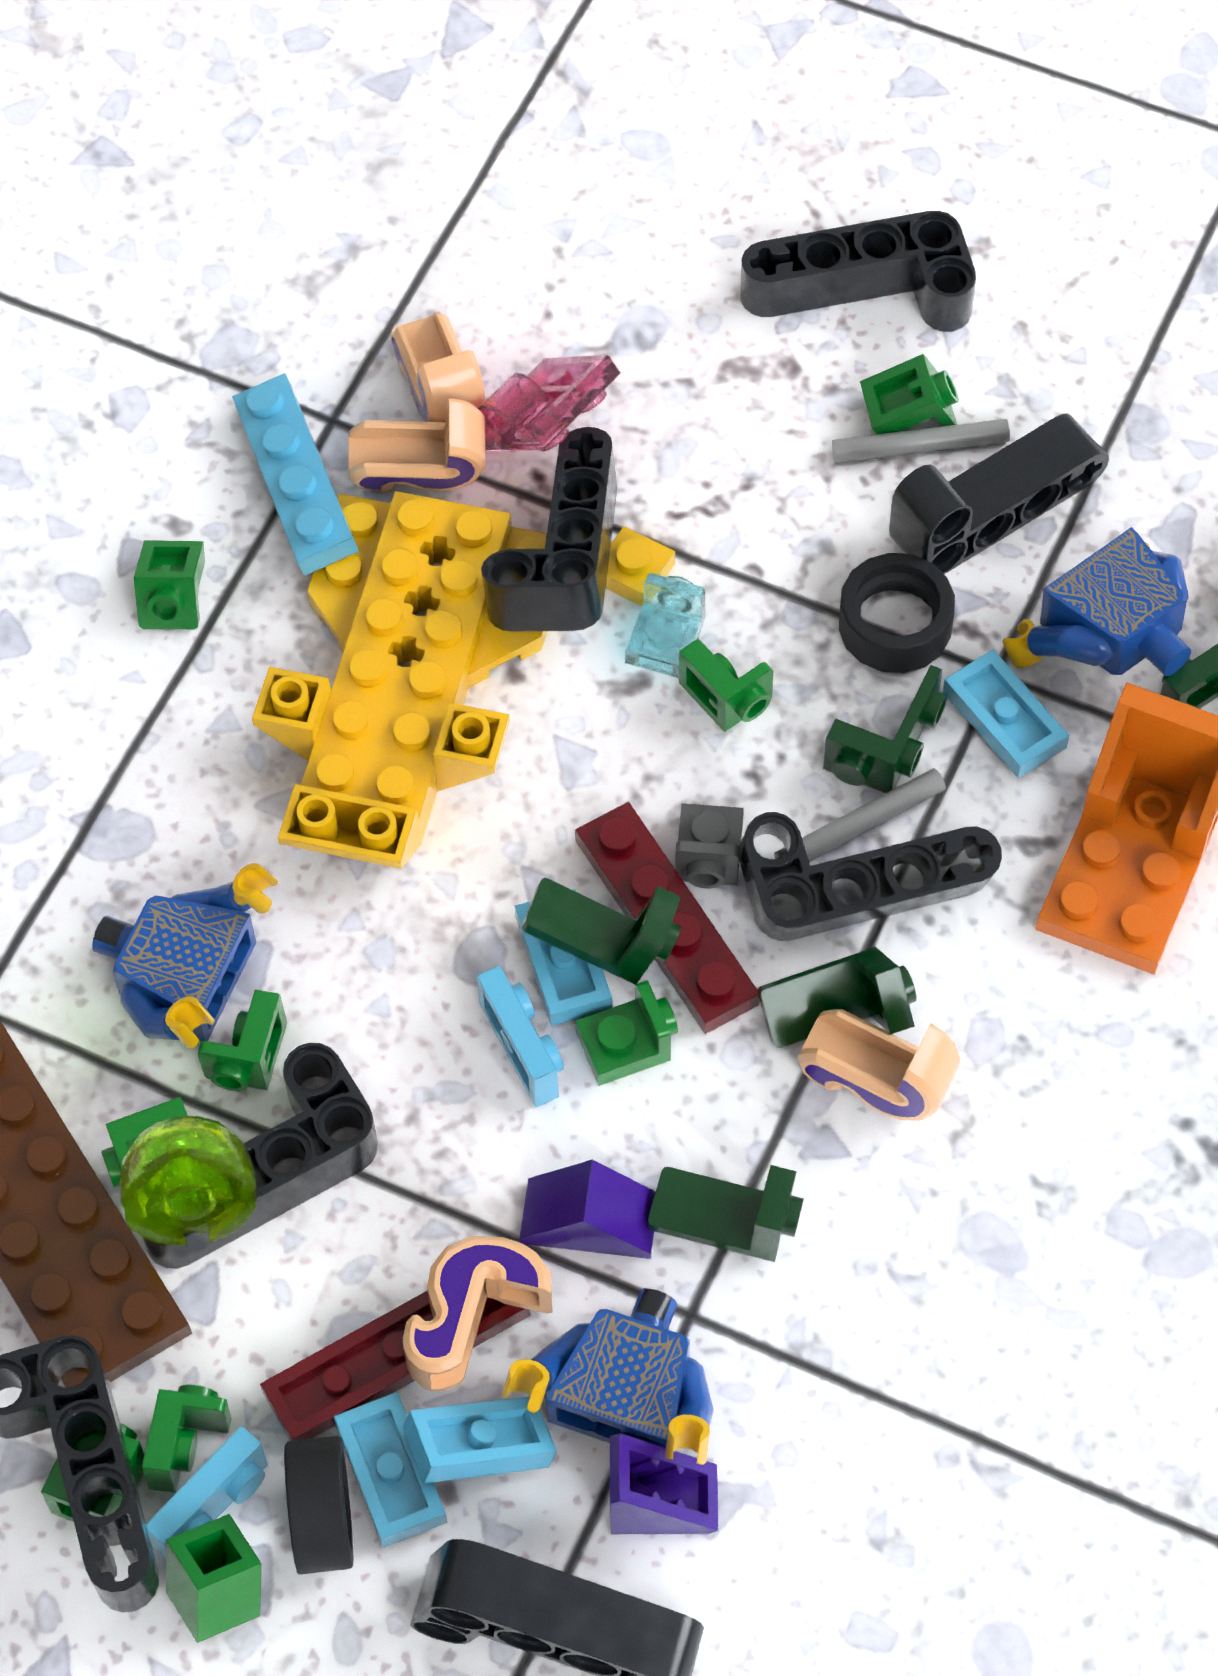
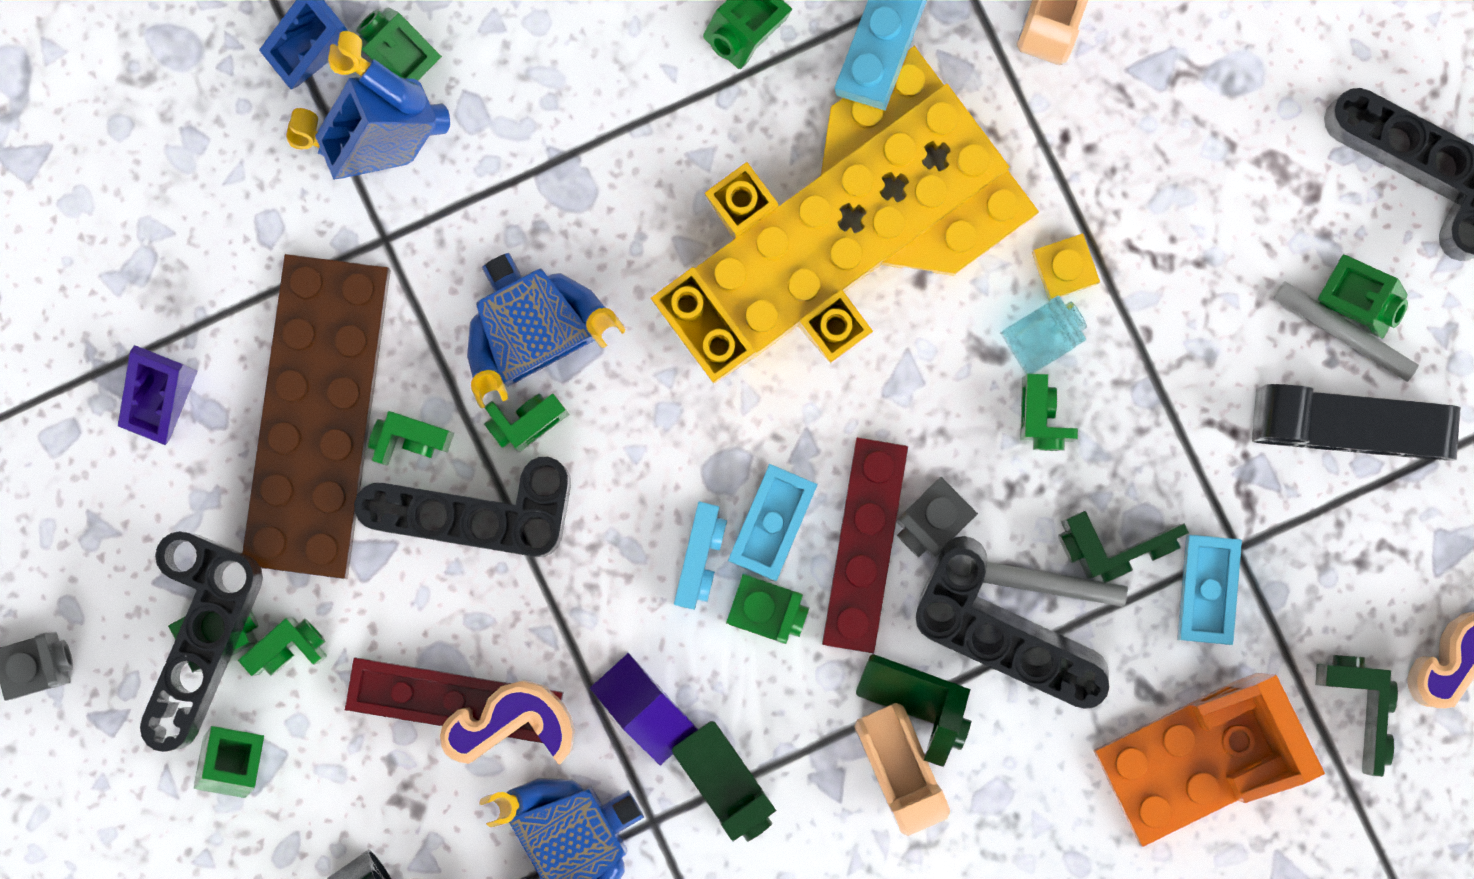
camera: 40 degrees right, 25 degrees up
(186, 1180) = (399, 502): clear neon green cylinder -> none
(226, 1477) = (247, 708): medium azure plate -> none
(318, 1505) = (322, 771): black tyre -> none
(388, 1471) = (389, 774): medium azure plate -> none
(419, 452) = (989, 61): light nougat animal -> none
(478, 1439) = (449, 805): medium azure plate -> none
(539, 407) = (1106, 97): clear pink plate -> none
(566, 580) = (1037, 215): black beam -> none
(602, 934) = (803, 538): dark green bracket -> none
(896, 573) = (1242, 438): black tyre -> none
(1111, 612) = (1340, 590): blue torso -> none

